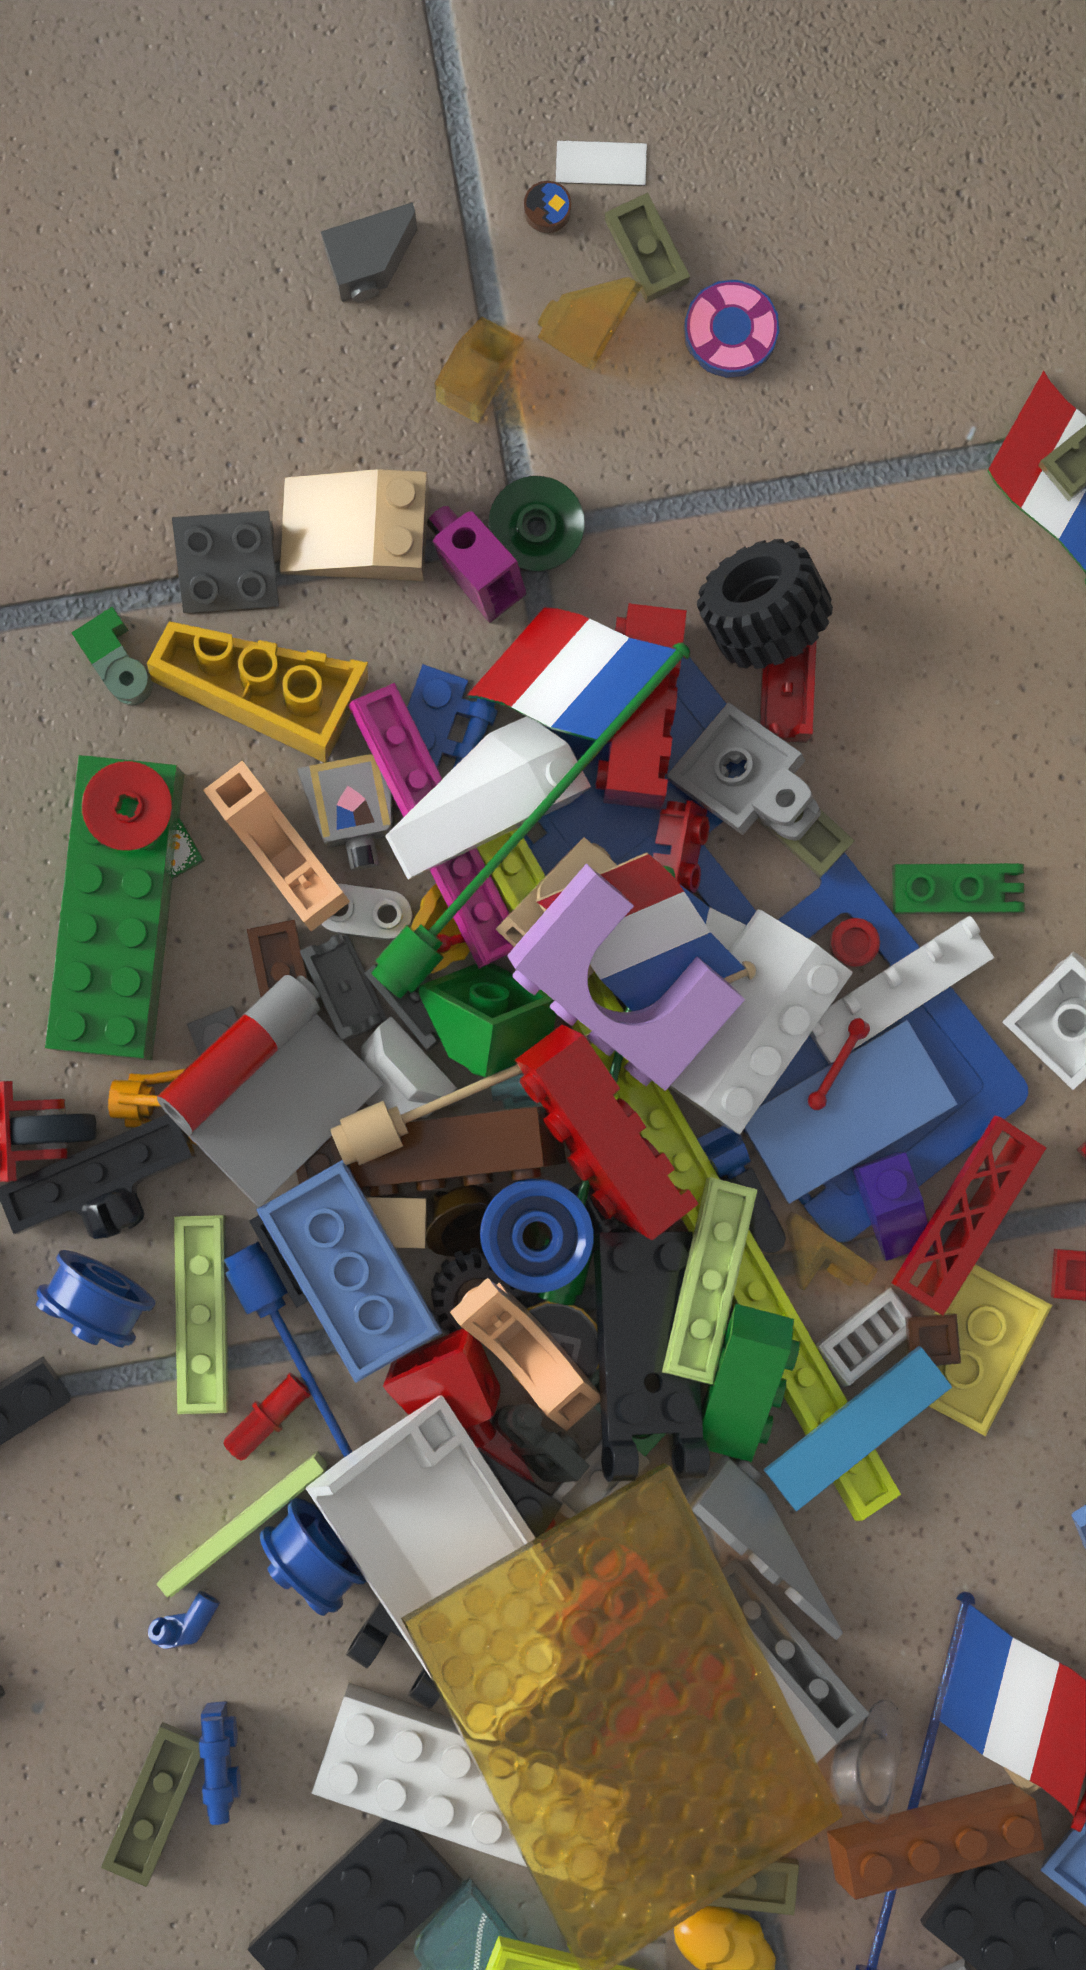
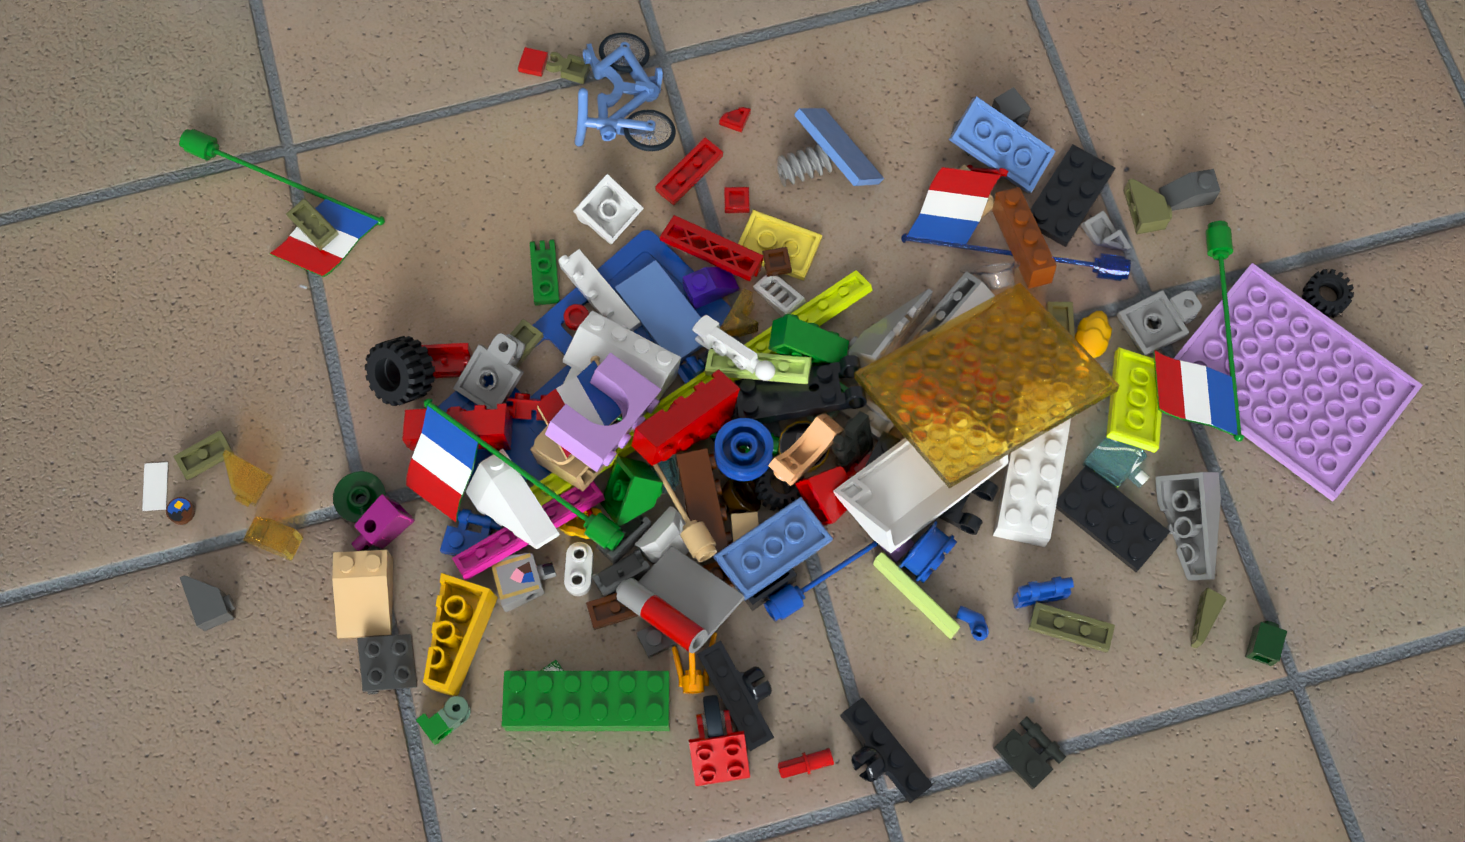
camera: 90 degrees left, 15 degrees down
(94, 1299) = (803, 684): blue wheel -> none
(104, 800) = (516, 684): red piece -> none
(201, 1314) = (806, 633): yellowish green tile -> none
(266, 1417) = (858, 590): red axle -> none
(276, 845) = (543, 619): light nougat arch -> none
(731, 328) = (248, 409): tile -> none
(780, 1195) = (724, 345): none -> white plate
(857, 1428) = (825, 289): dark azure tile -> none
(858, 1030) = (621, 308): red hinge -> none

